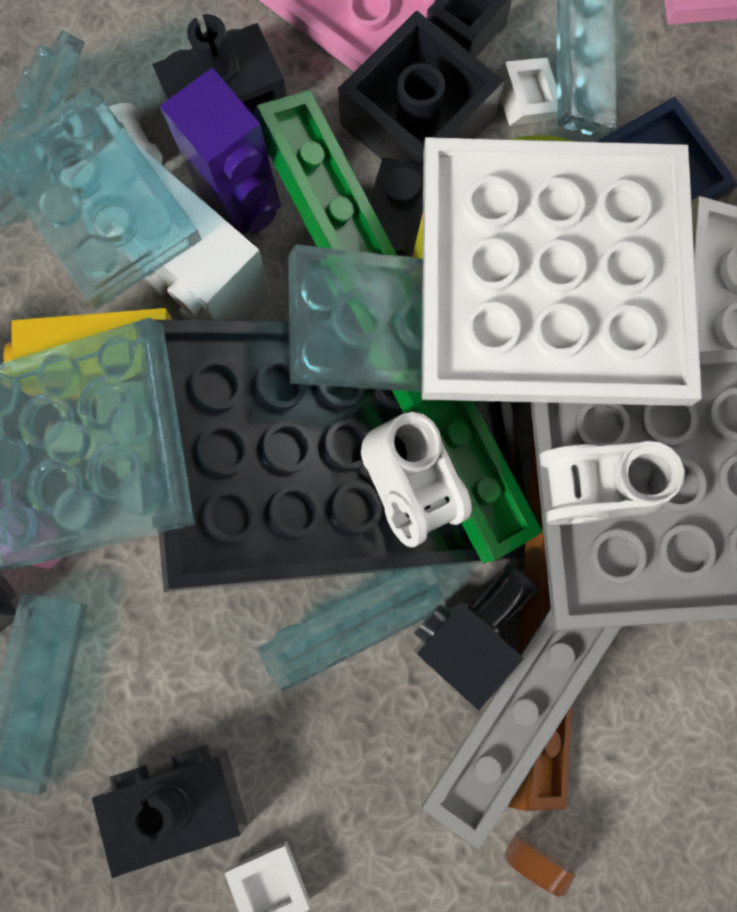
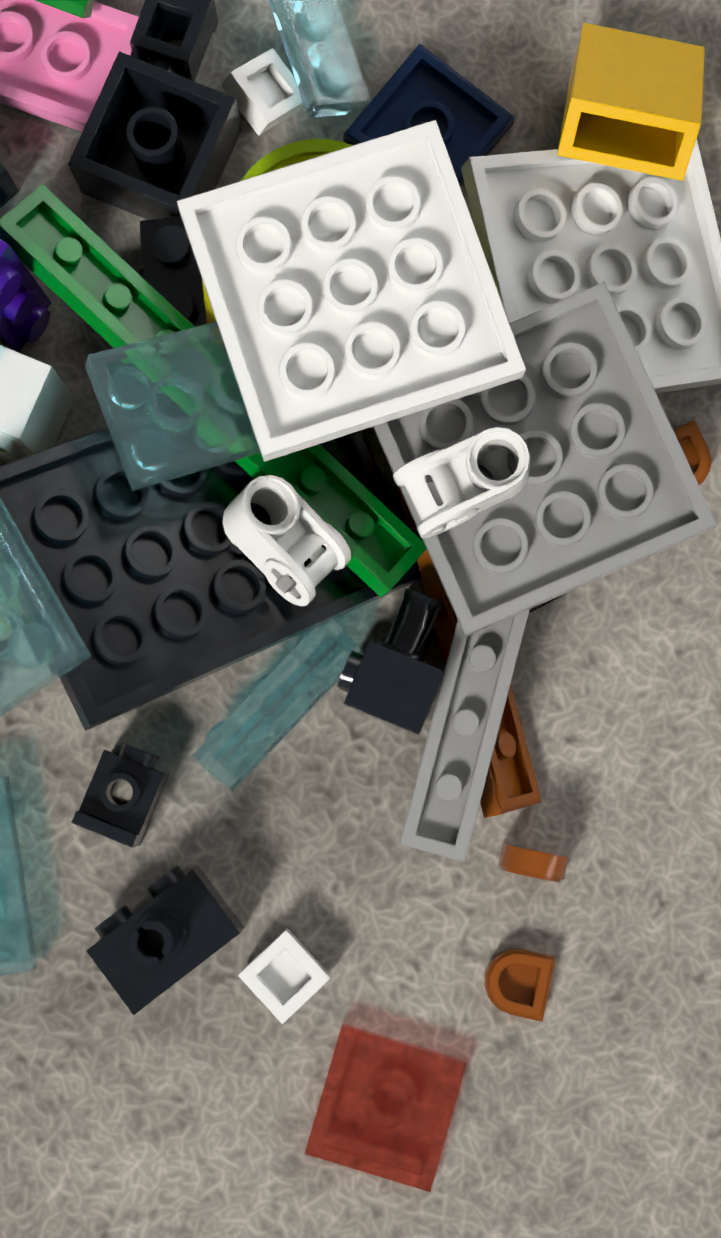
camera: 20 degrees left, 5 degrees up
(174, 687) = (128, 821): none -> black brick

